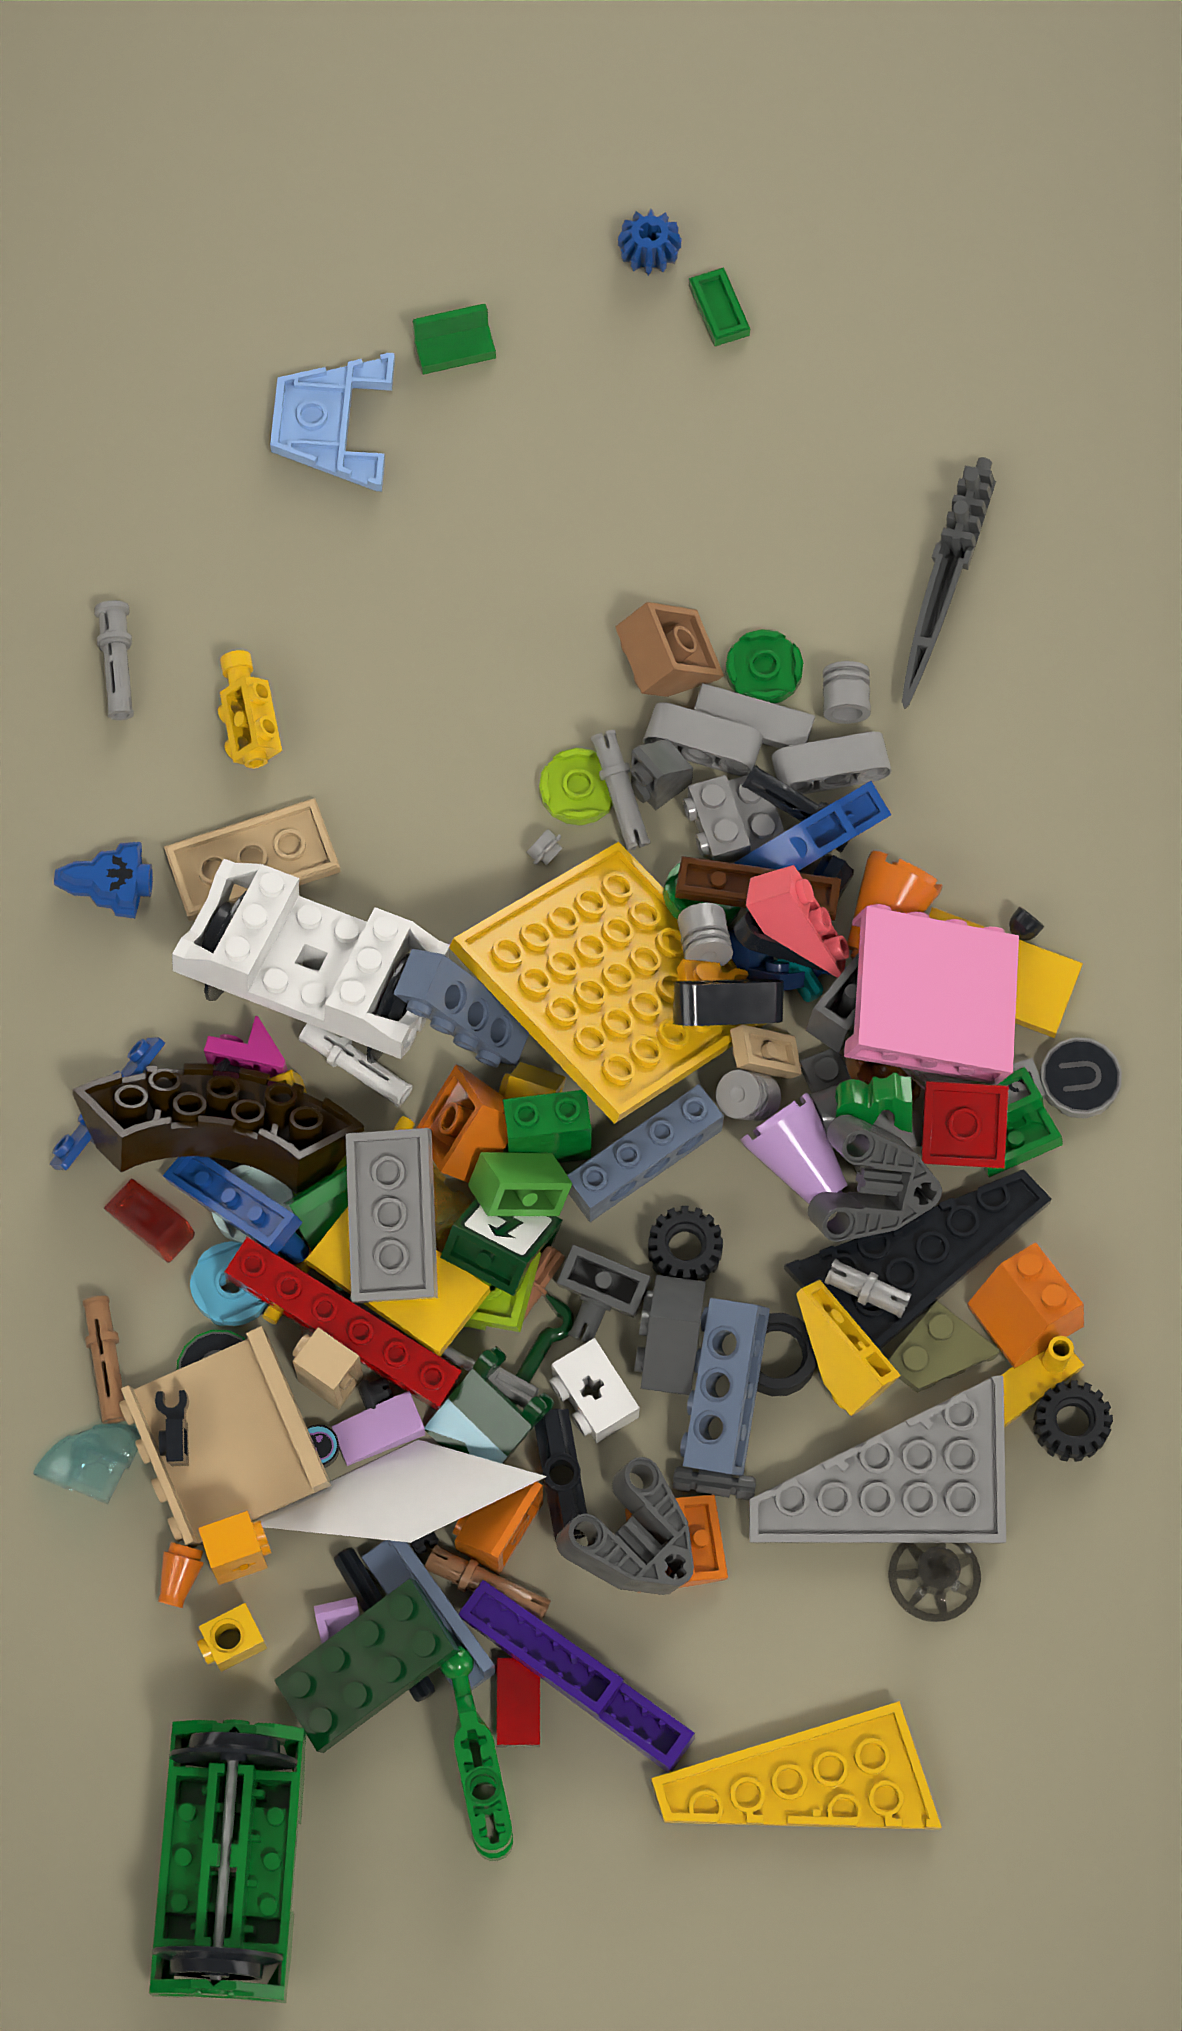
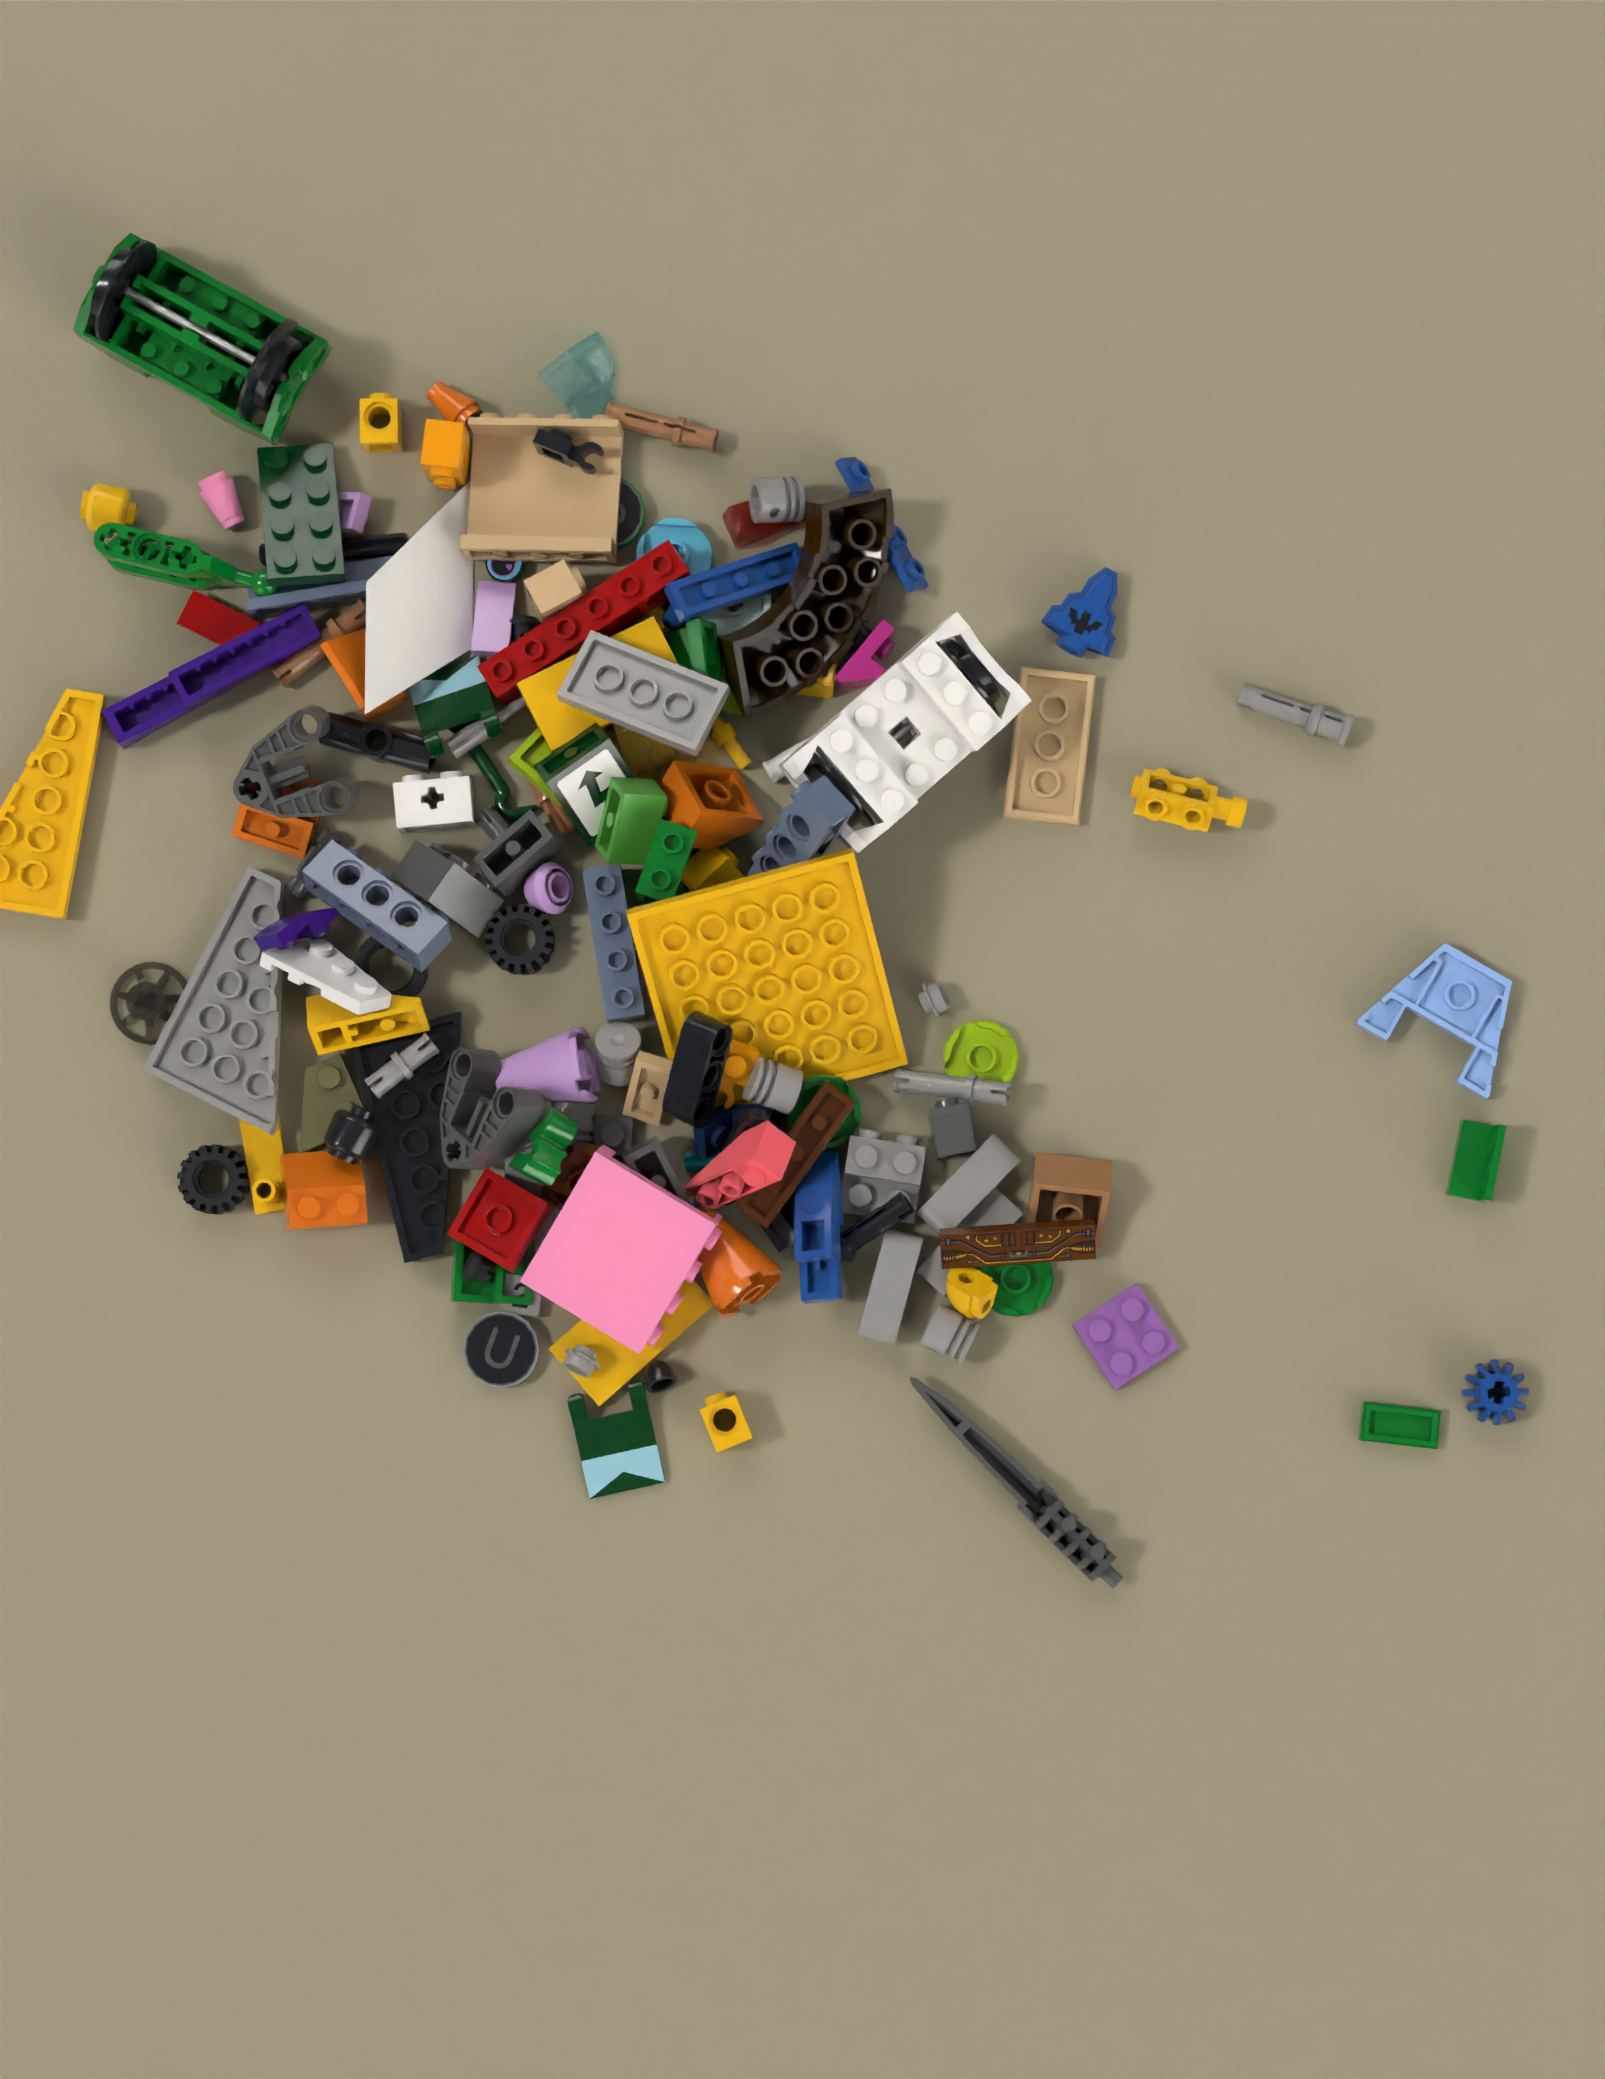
camera: 120 degrees right, 15 degrees up
(131, 1203) = (776, 499): none -> light grey piece
(387, 1763) = (222, 499): none -> bright pink cone
(455, 1875) = (107, 505): none -> yellow head
(623, 1240) = (549, 888): none -> lavender cone
(734, 669) = (1017, 1243): none -> reddish brown tile
(765, 554) = (1125, 1336): none -> medium lavender plate
(789, 1458) = (296, 926): none -> dark purple slope
(798, 690) = (970, 1291): none -> yellow piece
(814, 1404) = (332, 972): none -> white wing
(960, 1301) = (352, 1134): none -> black head
(1020, 1127) = (477, 1268): none -> black piece
(1036, 830) = (725, 1439): none -> yellow brick
(1052, 993) = (580, 1361): none -> light grey plate
(1109, 931) = (617, 1448): none -> dark green flag

